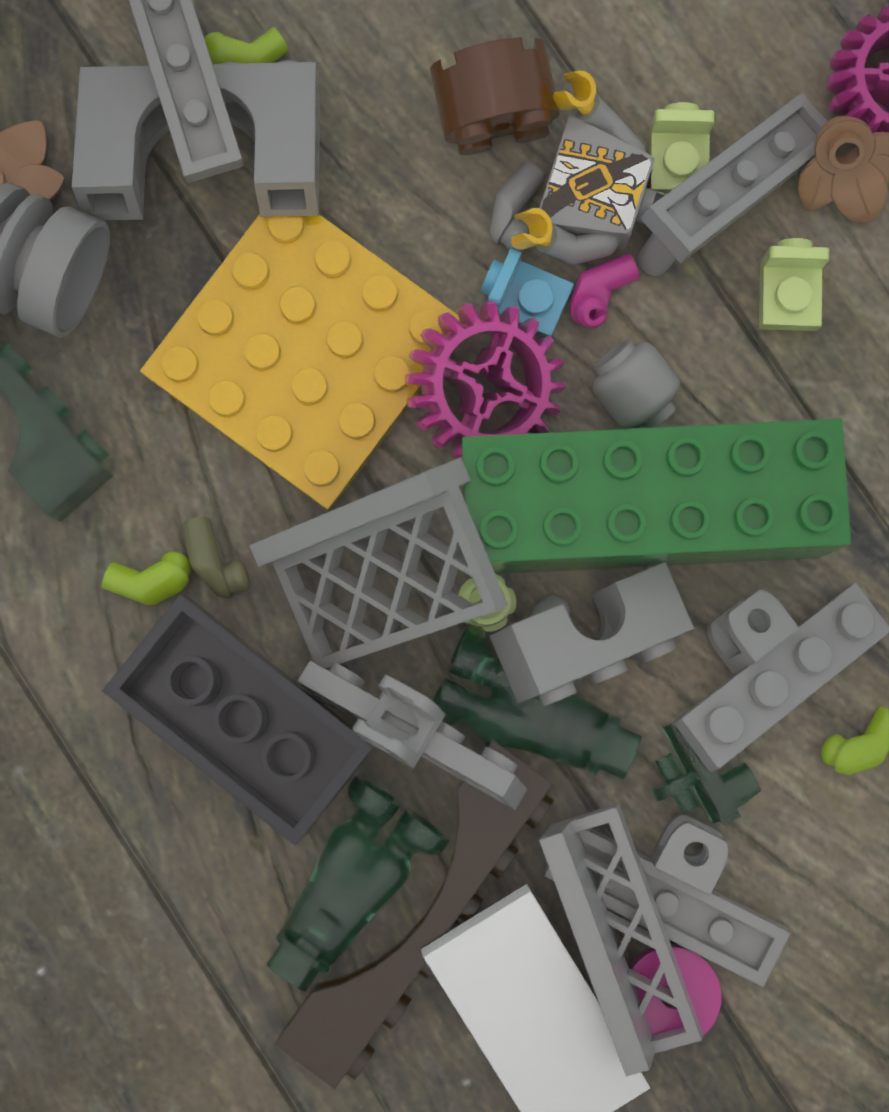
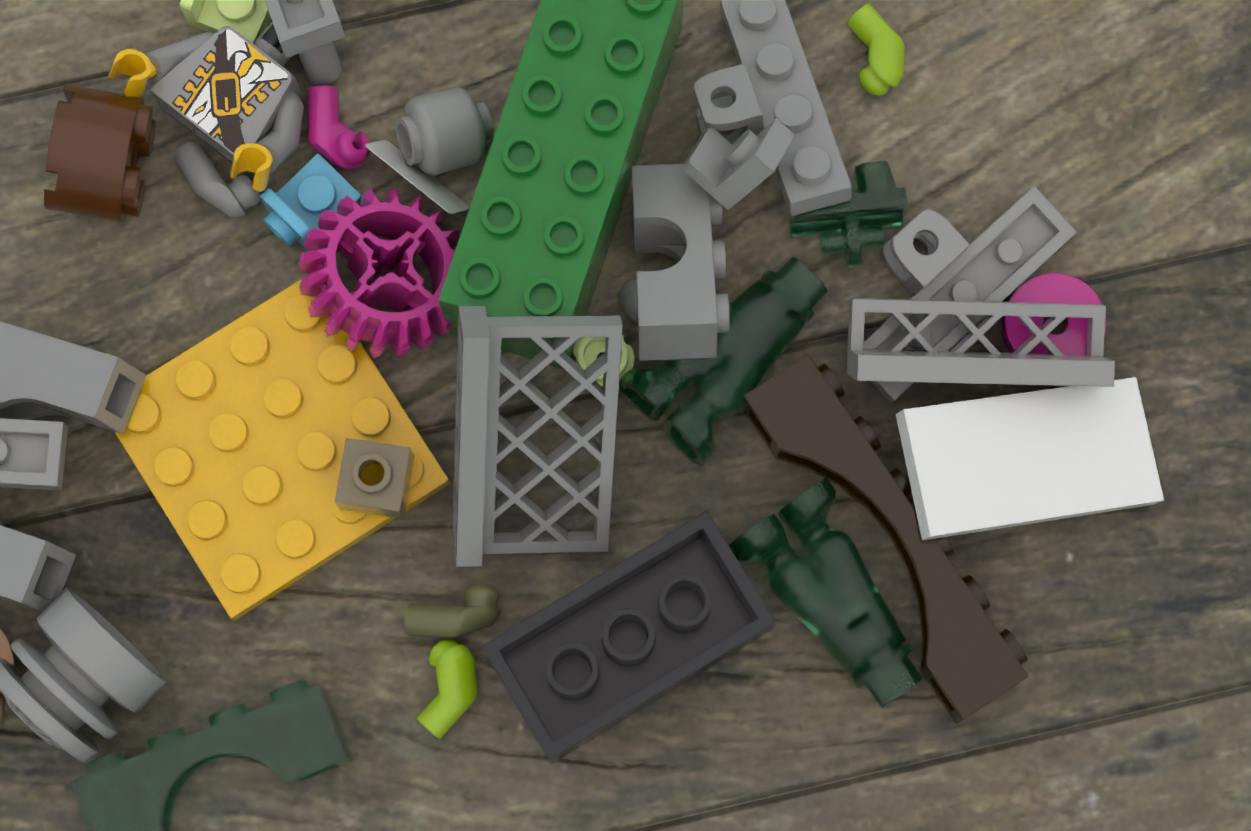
camera: 70 degrees left, 5 degrees down
(312, 459) = (384, 498): none -> dark tan plate
(412, 727) = (702, 464): light grey plate -> none
(580, 391) = (425, 183): none -> white sticker
(695, 659) = (735, 170): none -> light grey bracket

